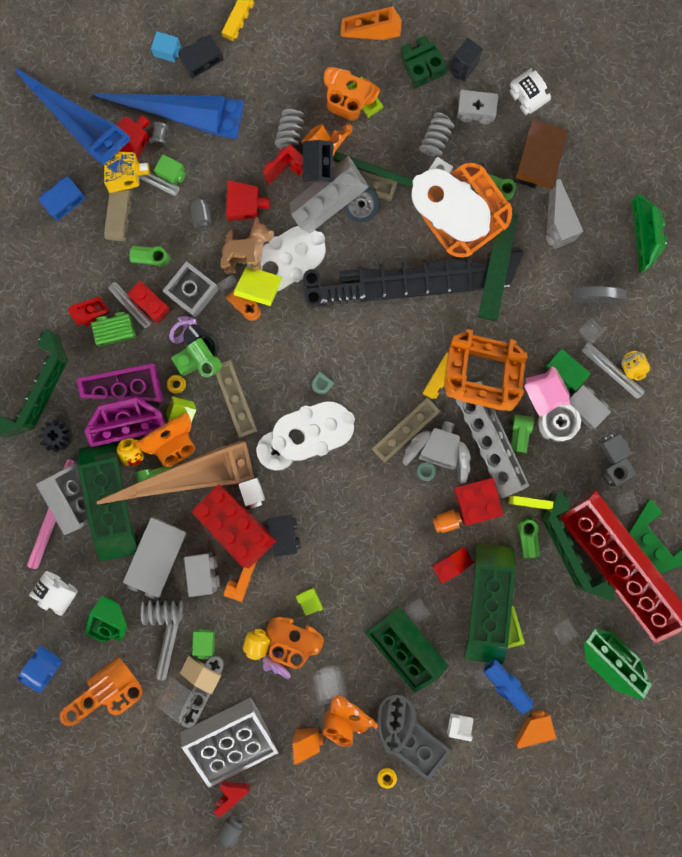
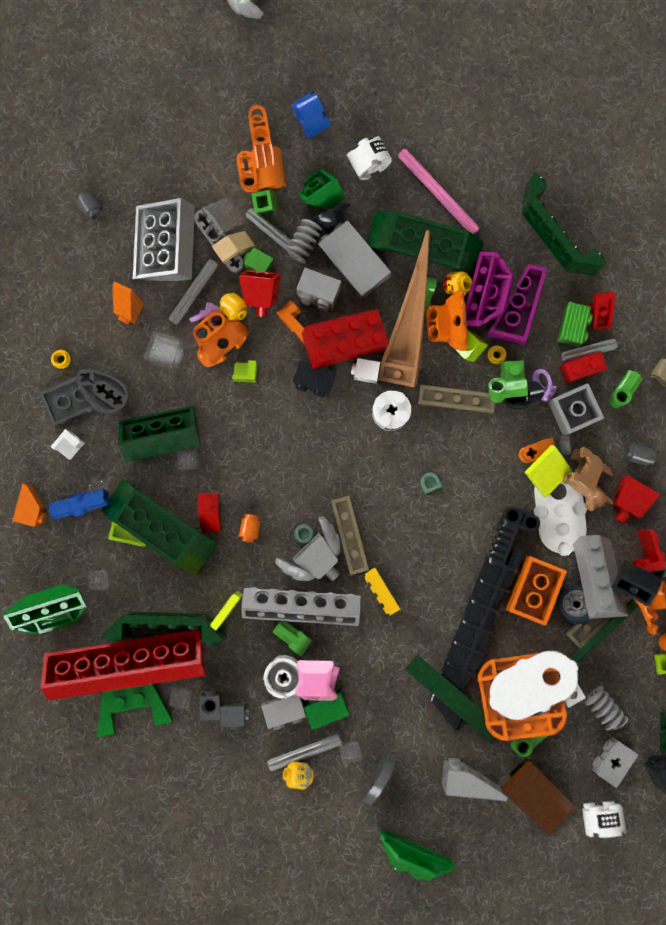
camera: 115 degrees right, 0 degrees up
(51, 443) = (498, 224): black gear -> none
(65, 498) = (446, 207): light grey slope -> none
(127, 599) = (330, 218): none -> black piece
(143, 667) = (265, 201): none -> bright green brick
(228, 628) = (260, 290): none -> red torso
(234, 793) = (119, 222): red slope -> none
(261, 689) = (193, 291): none -> light grey axle
(323, 426) = (388, 462): white piece -> none
(340, 725) = (126, 341): orange piece -> none
(368, 244) = (535, 590): none -> orange brick
(478, 394) = (369, 665): orange plate -> none
(478, 501) = (252, 565): red brick -> none
(529, 540) = (194, 592): bright green piece -> none

